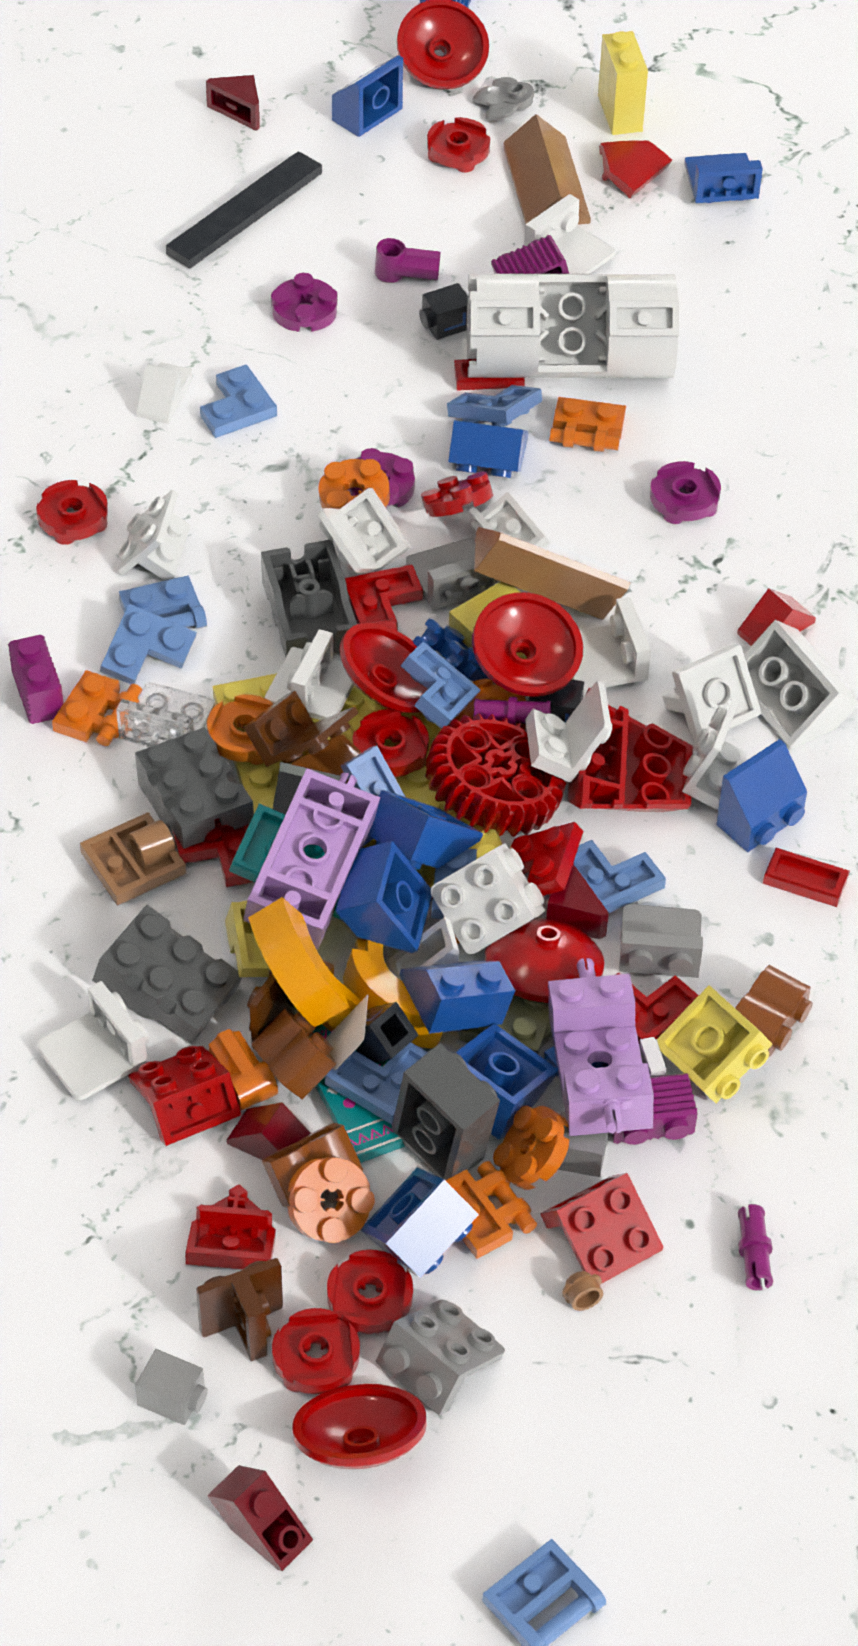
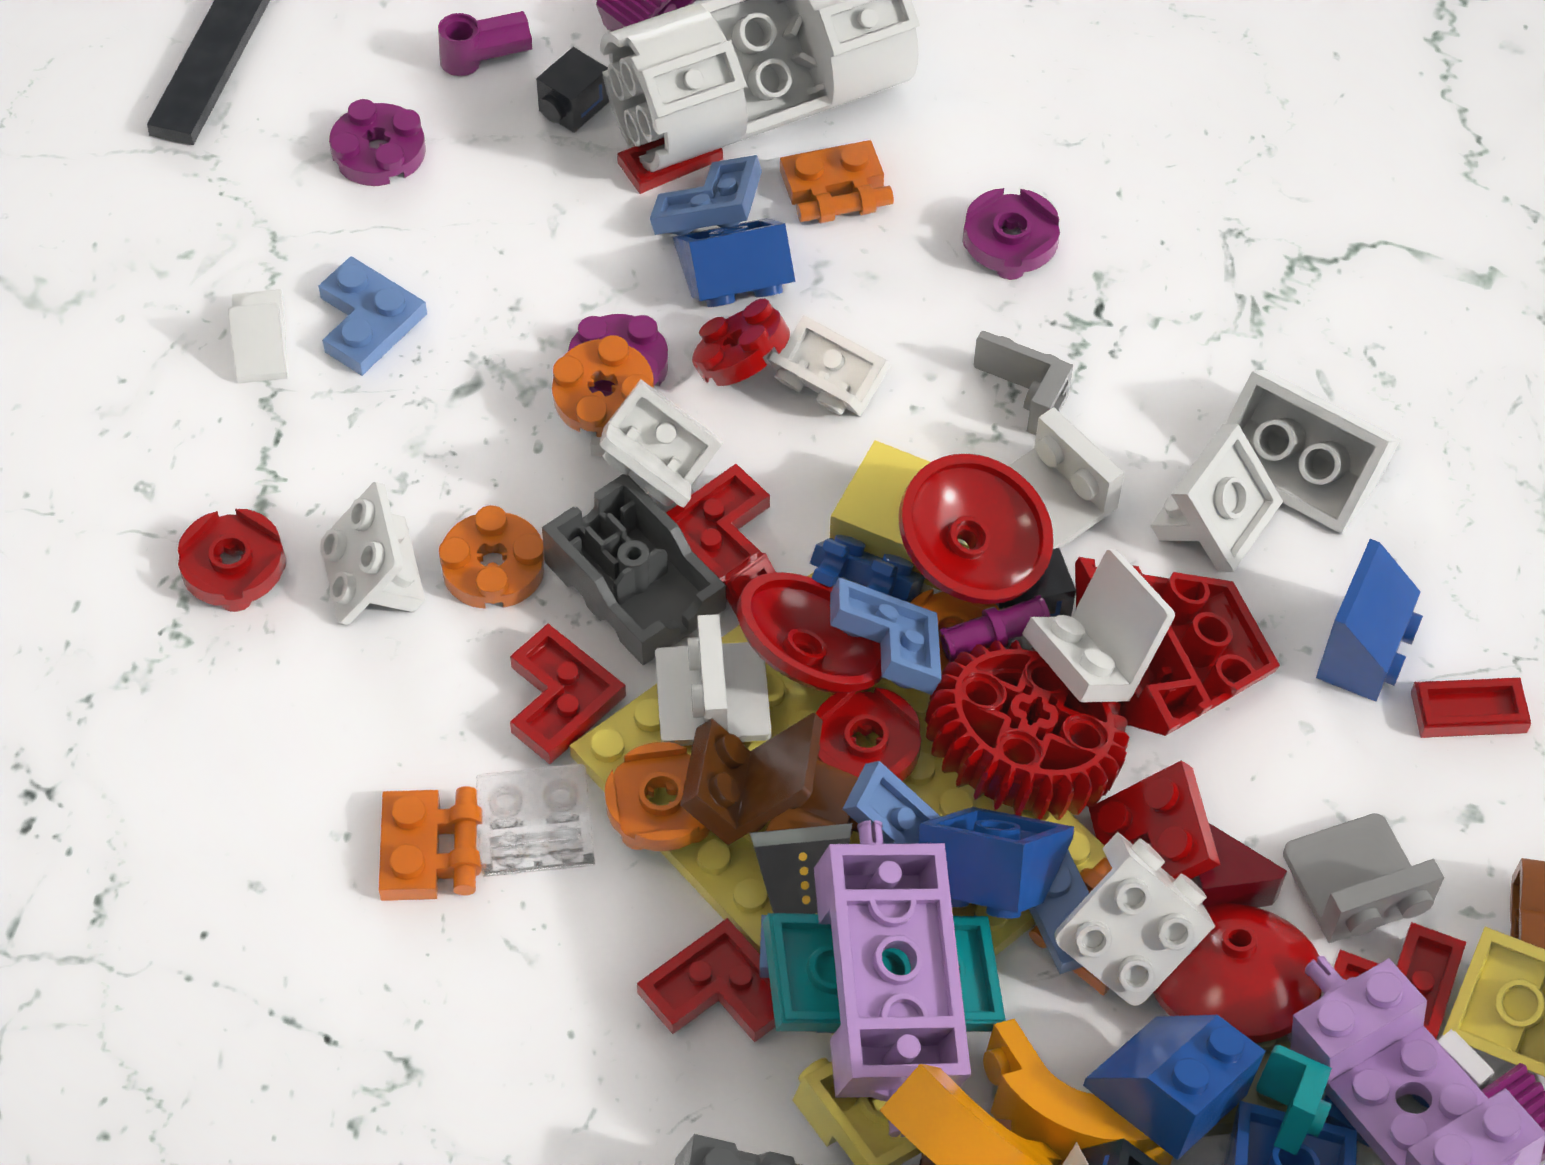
camera: 25 degrees left, 5 degrees up
(35, 678) = (324, 835): magenta brick -> none
(133, 857) = (608, 1054): medium nougat plate -> none
(143, 635) = (435, 710): medium blue plate -> none
(169, 599) = (425, 646): medium blue plate -> none
(192, 786) = (638, 916): dark grey piece -> none
(226, 552) = (489, 533): none -> orange plate
(230, 660) = (572, 696): none -> red plate
(385, 898) = (1011, 983): blue slope -> none
(435, 948) = (1085, 1025): white slope -> none
(449, 573) = (794, 452): light grey bracket -> none
(525, 1029) = (1300, 1086): none -> teal bracket
(546, 573) = (926, 413): medium nougat slope -> none
(618, 883) = (1263, 811): medium blue plate -> none
(646, 583) = (1041, 373): none -> light grey bracket
(713, 758) = (1280, 589): white bracket -> none
(773, 607) = (1222, 370): red slope -> none

